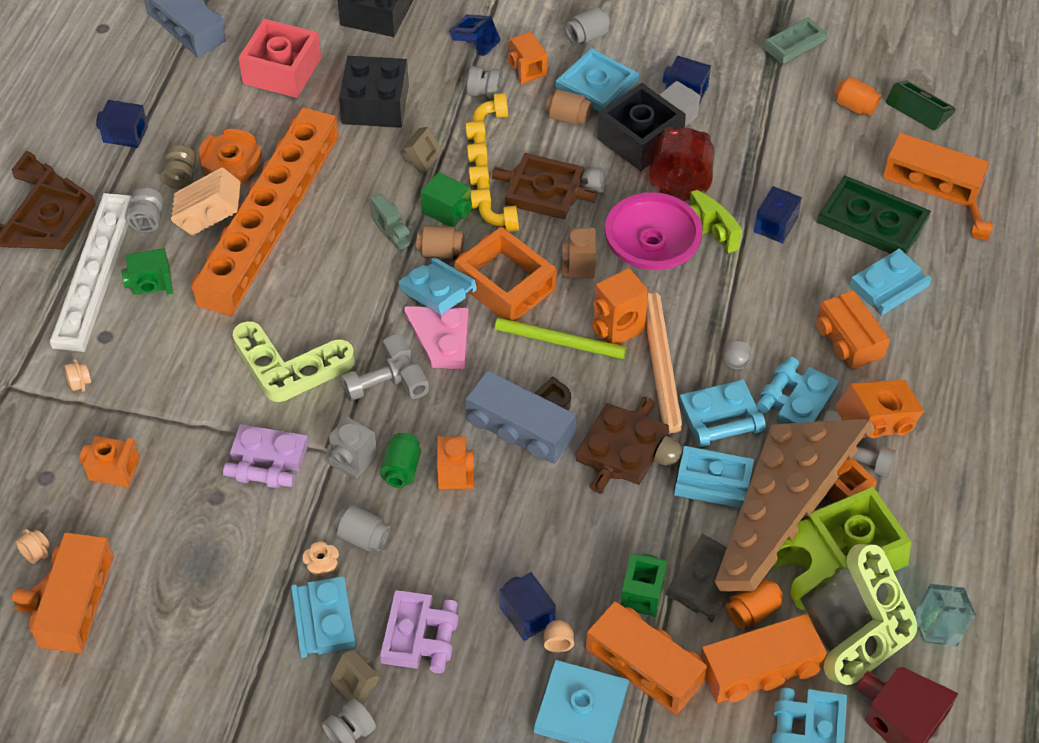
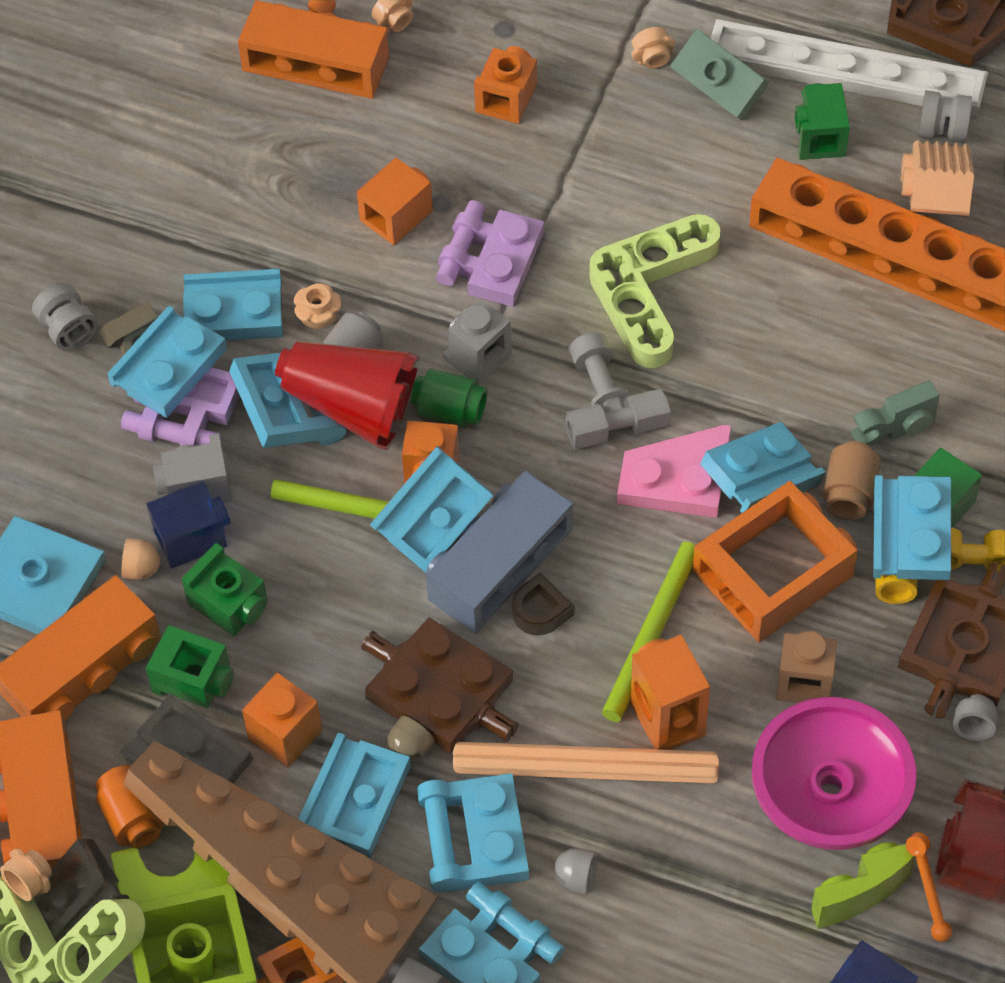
camera: 100 degrees right, 5 degrees up
(104, 334) = (719, 74): none -> sand green plate
(226, 515) = (395, 200): none -> orange brick
(392, 636) = (167, 361): none -> medium azure plate
(410, 500) = (351, 385): none -> red cone
(414, 559) = (274, 412): none -> medium azure plate
(483, 199) = (912, 527): none -> medium azure plate
(483, 607) = (192, 465): none -> light grey brick
(490, 504) = (327, 499): none -> lime bar
(501, 450) = (431, 508): none -> medium azure plate
(577, 573) = (209, 592): none -> green brick
(673, 520) = (282, 720): none -> orange brick
(698, 184) = (917, 846): none -> orange hinge
(835, 634) = (27, 874): none -> light nougat plate

